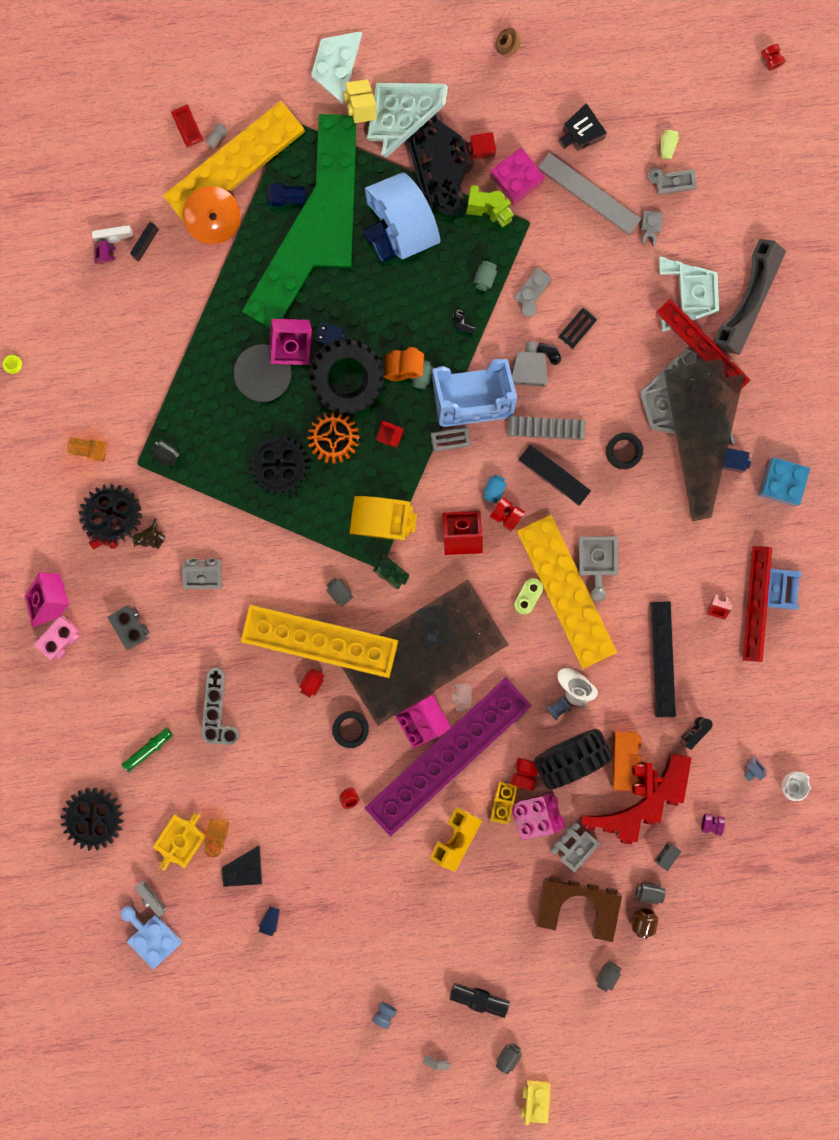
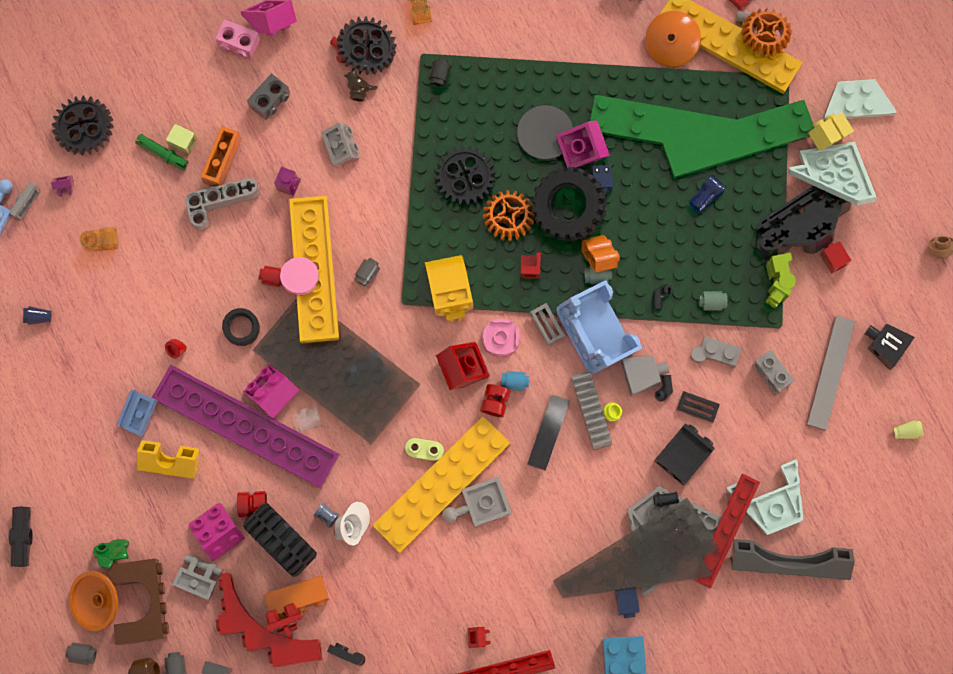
camera: 75 degrees right, 10 degrees down
(141, 726) = (181, 139): none -> yellowish green panel
(144, 856) = (63, 183): none -> magenta tile
(175, 694) = (221, 157): none -> orange brick
(179, 841) = (86, 209): yellow plate -> none
(222, 637) = (287, 181): none -> magenta brick
(225, 125) = (765, 39): none -> orange gear
(244, 869) = (78, 277): black wing -> none
(280, 195) = (716, 93): clear blue piece -> none
(324, 657) = (299, 276): none -> bright pink tile
(391, 572) = (401, 311): clear green hips -> none
(399, 854) = (137, 412): none -> medium blue plate
(406, 214) = (742, 207): light blue panel -> none
(447, 487) = (501, 337): none -> bright pink tile
(503, 803) = (217, 494): yellow slope -> none
(517, 176) = (819, 298): dark pink brick -> none
(524, 917) = (110, 552): none -> green plate
(555, 409) = (612, 412): none -> neon yellow plate
(565, 950) = (93, 601): none -> orange dish
(571, 246) = (773, 372): none -> light grey brick
(617, 357) = (685, 453): none -> black panel
(624, 465) = (599, 477): black tyre -> none
(651, 224) = (825, 442): light grey plate -> none
(656, 390) = (665, 499): none -> black pin
(663, 659) = (408, 600): black plate -> none
(673, 181) = (874, 447): light grey hinge -> none

